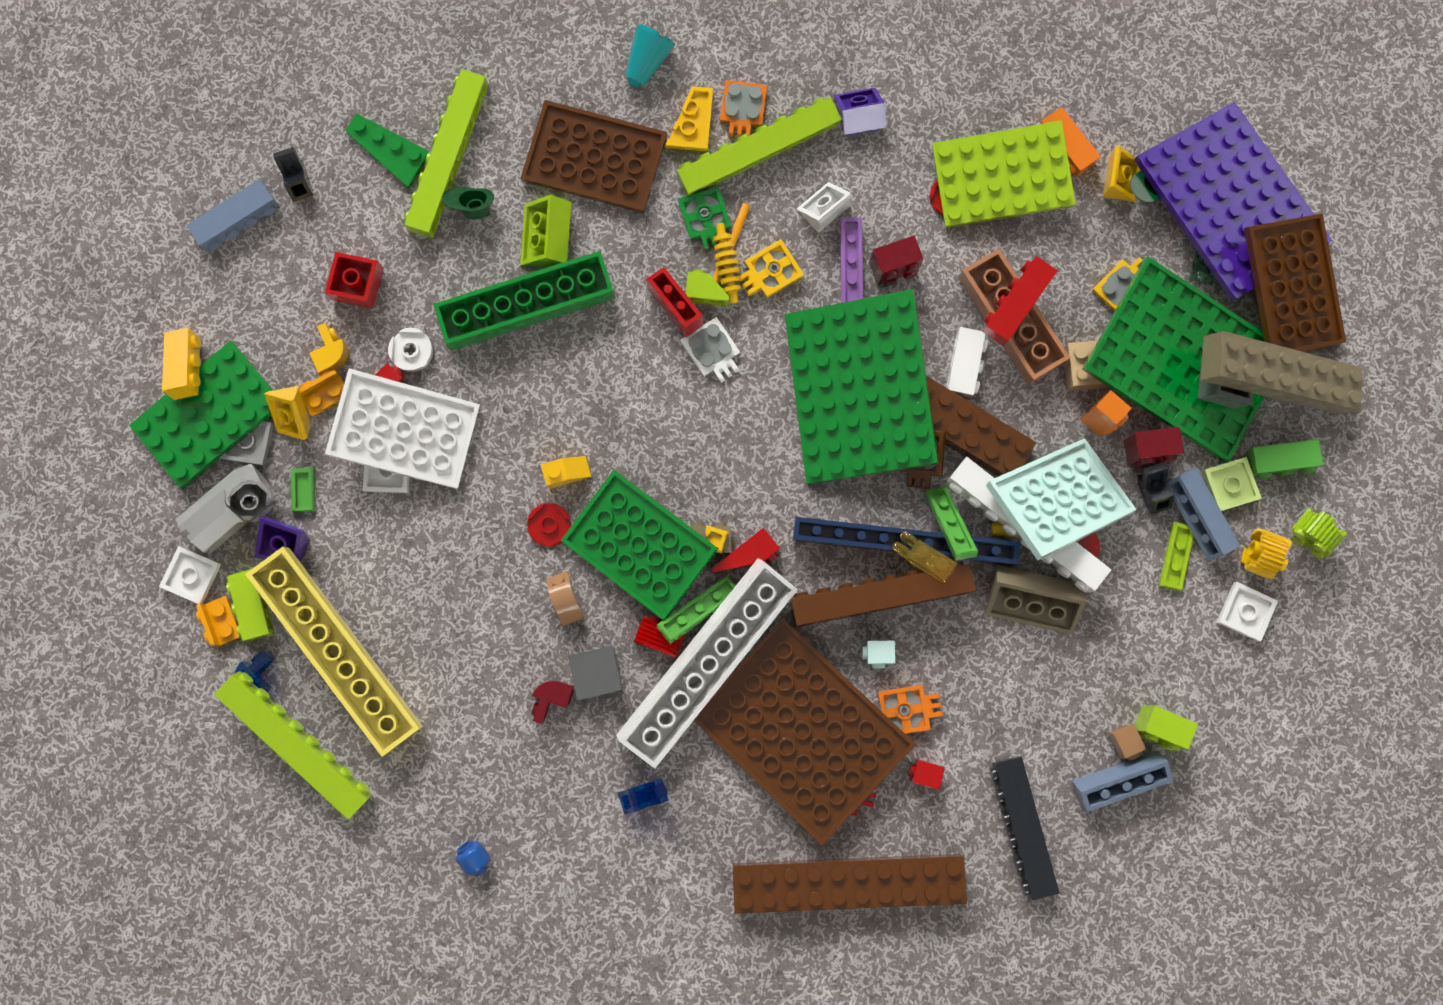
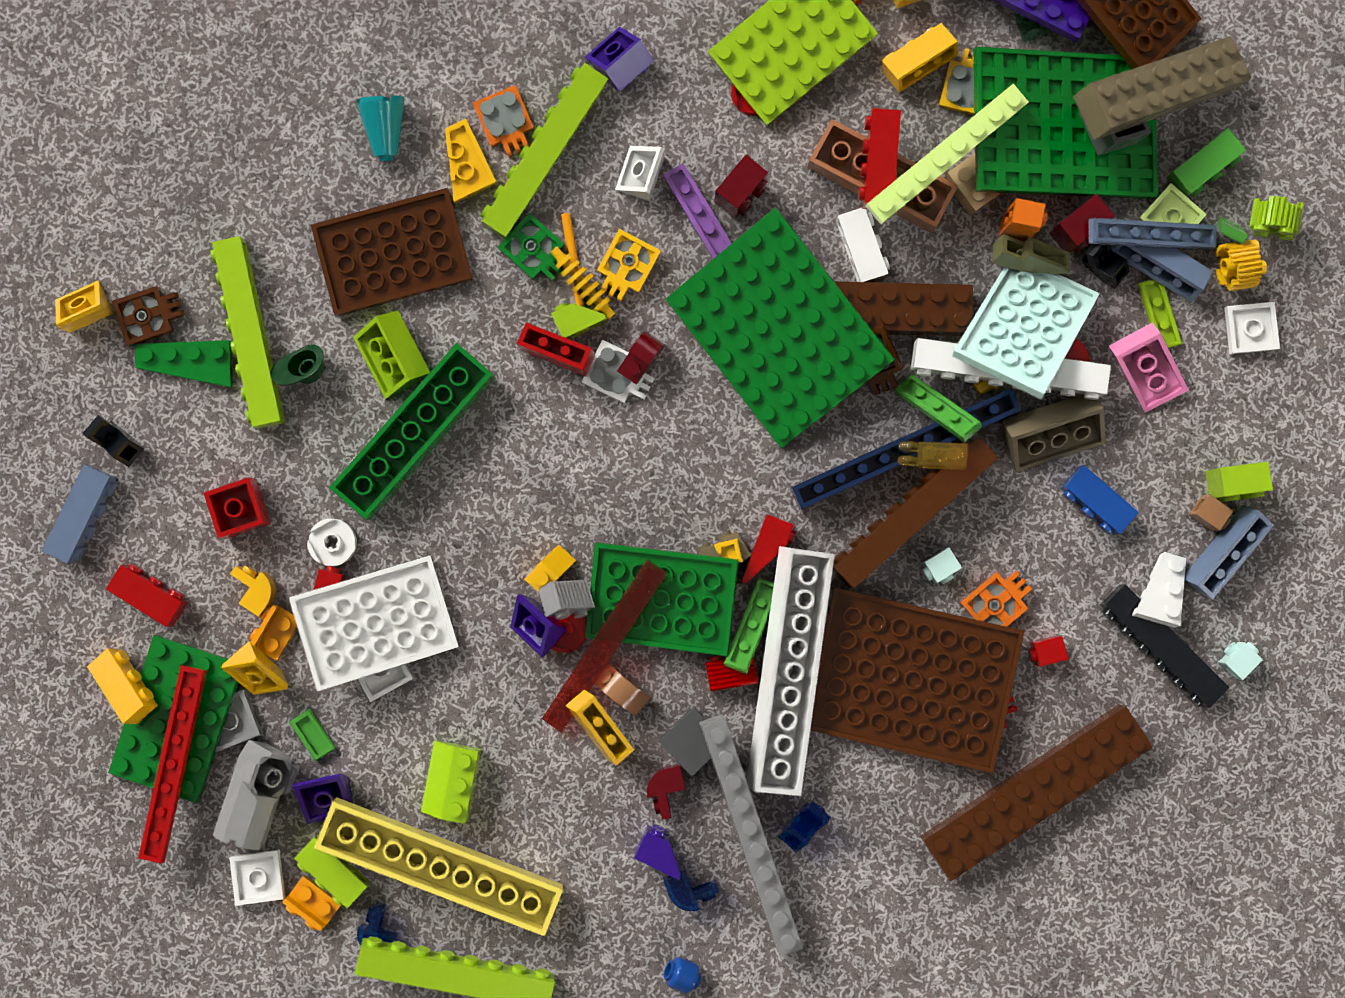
camera: 30 degrees left, 5 degrees up
(180, 446) = (172, 764): none -> red plate
(245, 306) = (147, 594): none -> red brick
(333, 64) = (82, 307): none -> yellow slope
(379, 96) = (146, 315): none -> reddish brown piece
(386, 591) = (451, 781): none -> lime slope
(513, 792) = (685, 895): none -> clear blue brick
(514, 744) = (658, 851): none -> dark purple slope
(528, 506) = (533, 625): none -> dark purple slope
(528, 617) = (600, 727): none -> yellow brick
(564, 499) = (566, 599): none -> light grey brick
(571, 554) = (606, 642): none -> clear red plate
(595, 777) = (750, 835): none -> light grey brick
(740, 344) = (640, 357): none -> dark red brick
(1039, 676) = (1098, 500): none -> blue brick
(1050, 783) = (1164, 594): none -> white wing
(1075, 325) = (947, 154): none -> yellowish green plate
(1082, 876) = (1240, 659): none -> light aqua brick
(1097, 447) = (1030, 256): none -> olive slope
(1099, 243) = (920, 57): none -> yellow brick
(1143, 593) = (1149, 367): none -> bright pink slope
(1207, 486) = (1152, 234): none -> sand blue tile
(1275, 522) = (1232, 230): none -> bright green tile

